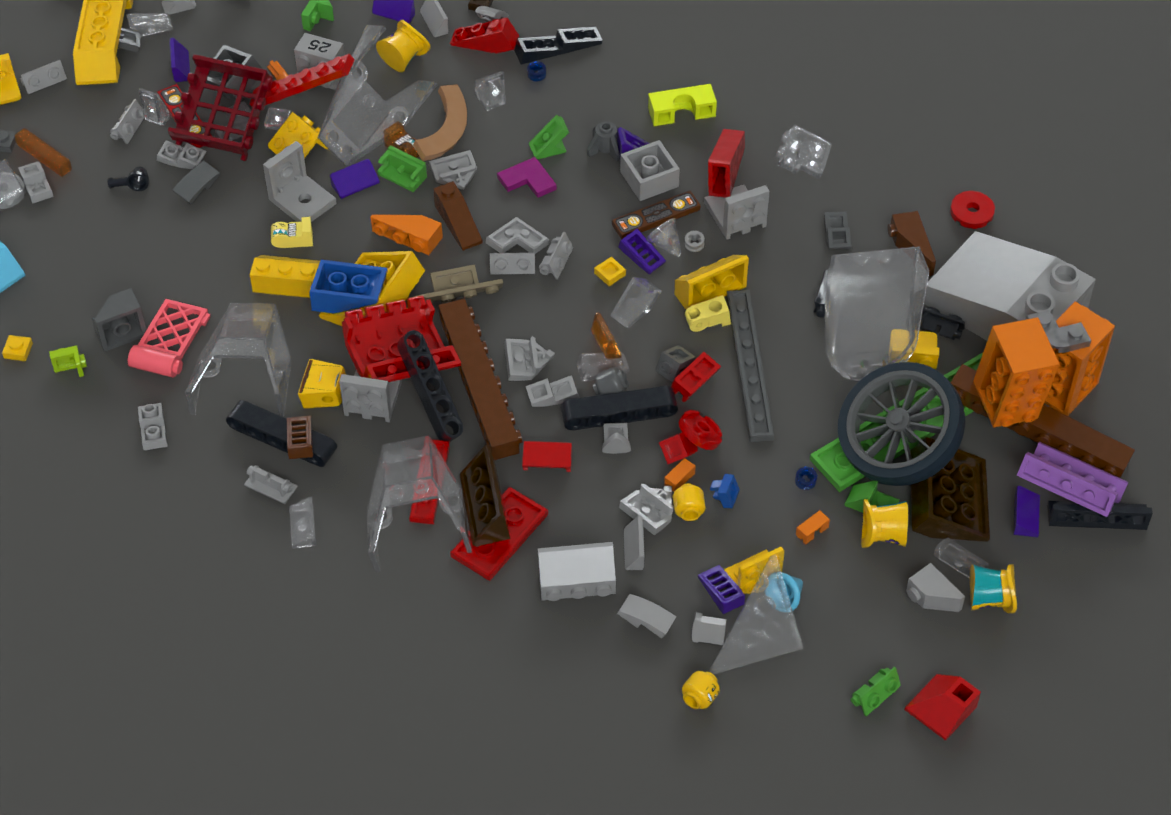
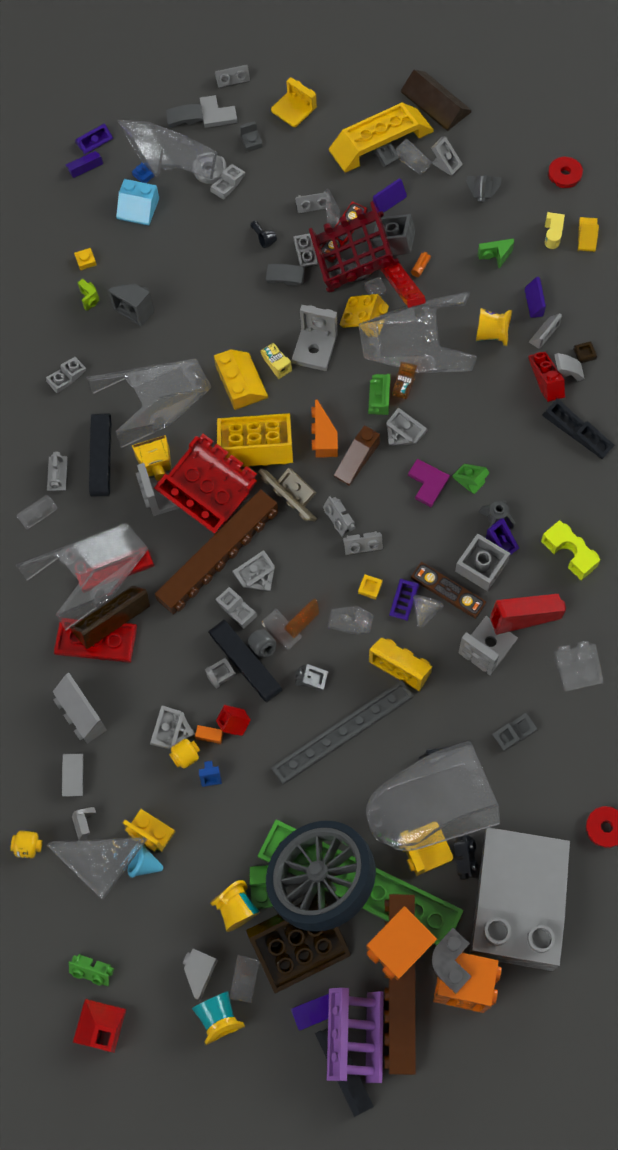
camera: 65 degrees right, 15 degrees up
(43, 77) = (320, 127): light grey hinge -> none
(43, 152) = (255, 169): clear orange piece -> none
(158, 357) = (119, 343): coral piece -> none
(299, 450) = (91, 475): reddish brown slope -> none
(315, 50) = (439, 278): light grey brick -> none
(345, 286) = (238, 420): blue slope -> none
(354, 178) = (352, 369): dark purple slope -> none
(430, 374) = (168, 529): black beam -> none
(452, 128) = (440, 404): medium nougat tile -> none
(491, 90) = (492, 408): clear slope -> none
(517, 233) = (368, 502): light grey tile -> none
(540, 75) = (537, 434): clear blue bush -> none
(547, 455) = (172, 635): red hinge -> none
(634, 544) = (131, 736): light grey slope -> none
(694, 236) = (444, 629): light grey bush -> none
(695, 376) = (301, 699): red hinge -> none
(700, 430) = (242, 728): red tile -> none
(708, 314) = (369, 678): light yellow leg -> none
(724, 604) = (119, 810): dark purple slope -> none
(807, 528) = (217, 854): orange piece -> none
(811, 474) = (251, 826): clear blue bush -> none
(909, 232) = (543, 789): reddish brown slope -> none

